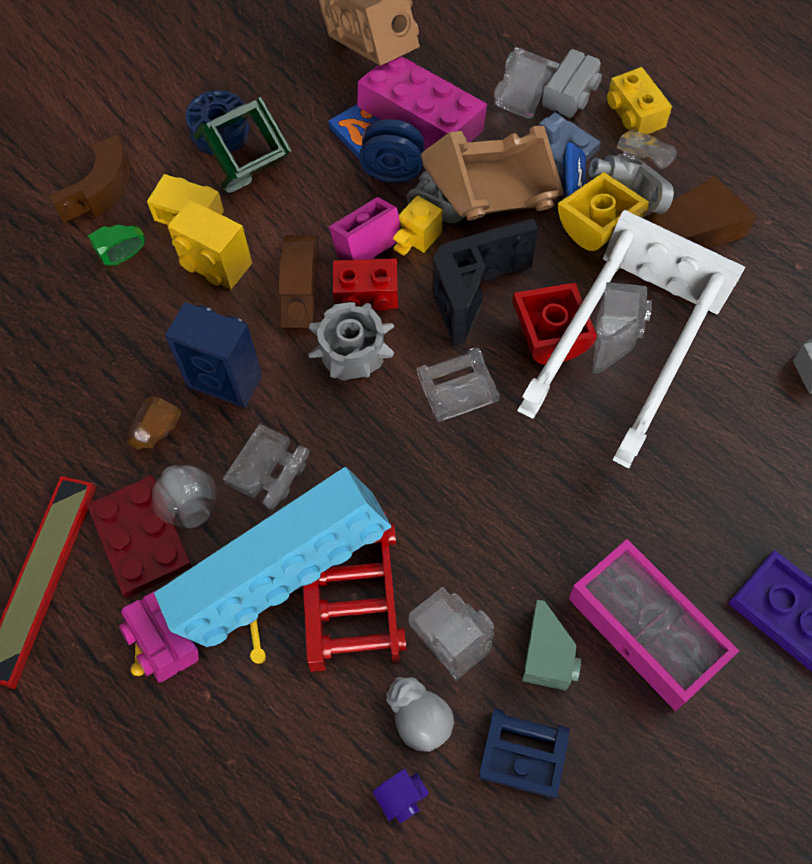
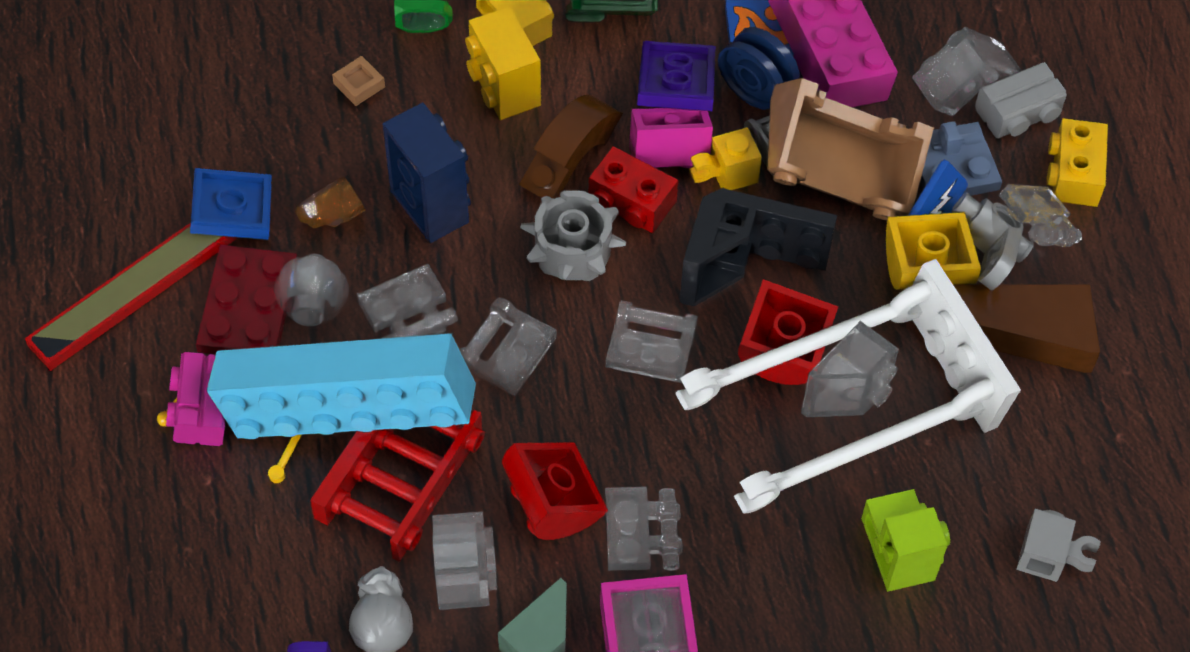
camera: 30 degrees right, 5 degrees down
(73, 467) = (231, 204): none -> blue tile
(106, 319) = (358, 80): none -> medium nougat plate
(338, 188) = (677, 76): none -> dark purple tile
(370, 447) = (516, 354): none -> clear plate
(477, 535) = (553, 488): none -> red brick
(549, 531) = (628, 528): none -> clear plate
(737, 420) = (905, 539): none -> lime brick

